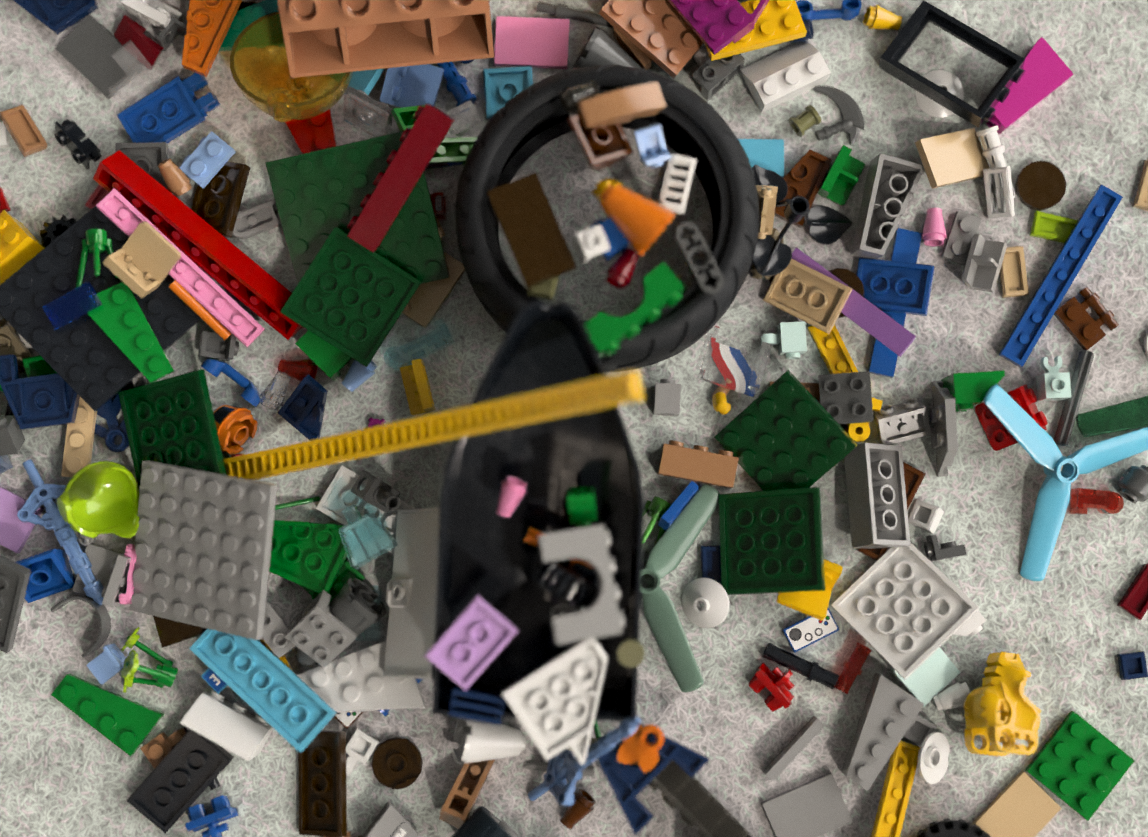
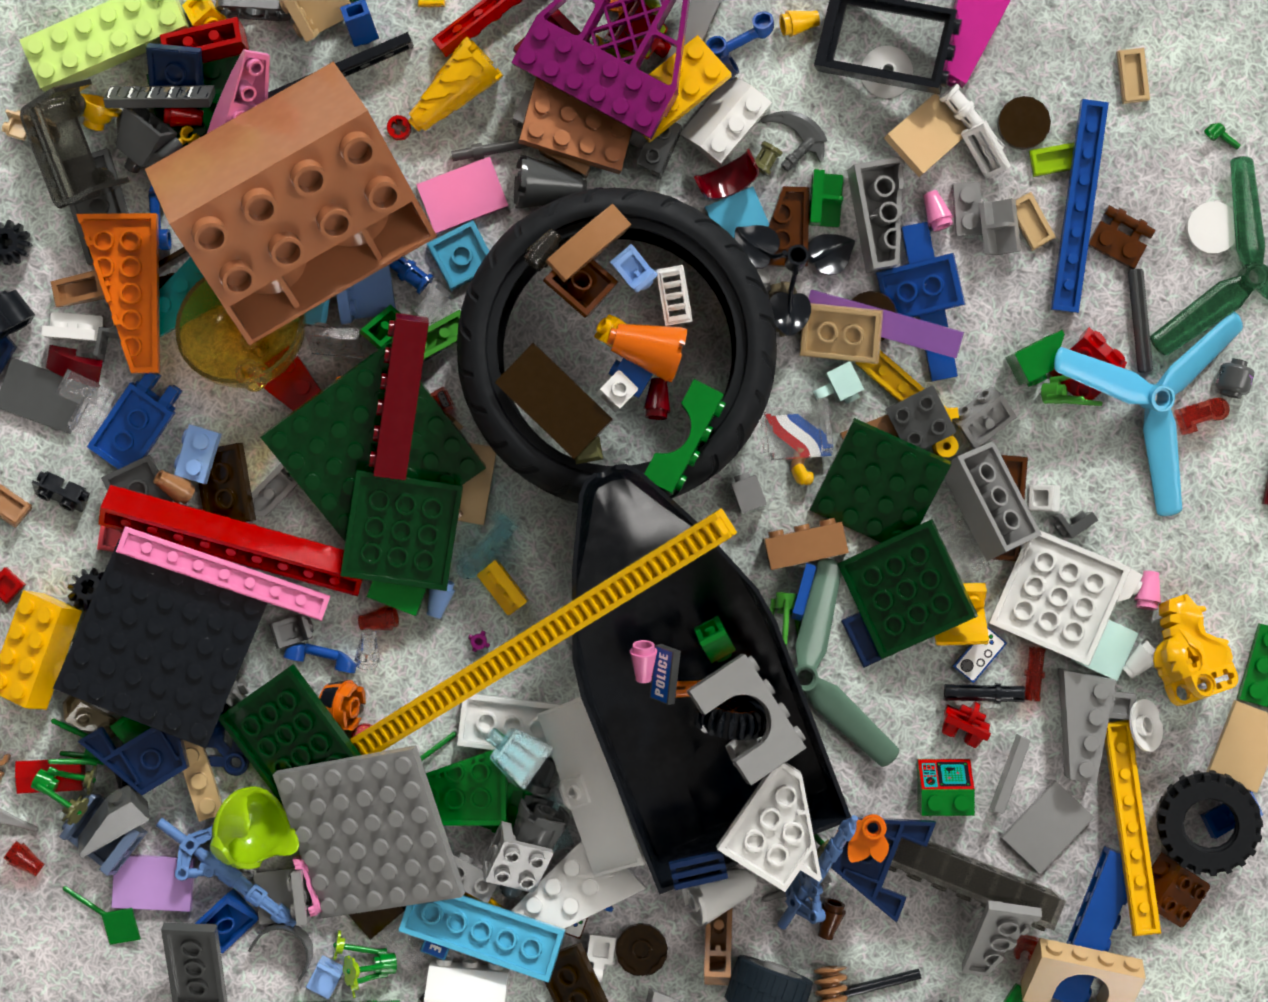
camera: 25 degrees left, 5 degrees up
(72, 305) = (140, 659): clear blue tile -> none
(96, 242) = (134, 587): green plant -> none
(130, 331) = (199, 654): green wing -> none
(143, 260) = (187, 584): tan bracket -> none
(206, 316) = (260, 606): orange bar -> none
(306, 408) = (404, 654): dark blue wing -> none
(376, 569) = (542, 779): none -> dark grey tile
(377, 493) = (510, 706): dark grey bracket -> none
(471, 642) = (667, 814): lavender tile -> none
(524, 517) = (665, 674): none -> tile
(631, 653) = (821, 759): olive tile -> none
(713, 273) = (726, 347): dark grey beam -> none
(713, 597) = (874, 665): white dish -> none
(730, 735) = (945, 787): none -> slope
(767, 124) = (729, 178): none -> dark red piece
(767, 201) = (764, 263): tan hinge -> none
(945, 427) = (1030, 411): light grey wing -> none
(974, 429) = (1057, 393): none -> bright green plant
(984, 641) = (1149, 593): none -> bright pink cone
(1052, 384) = (1115, 317): light aqua brick -> none

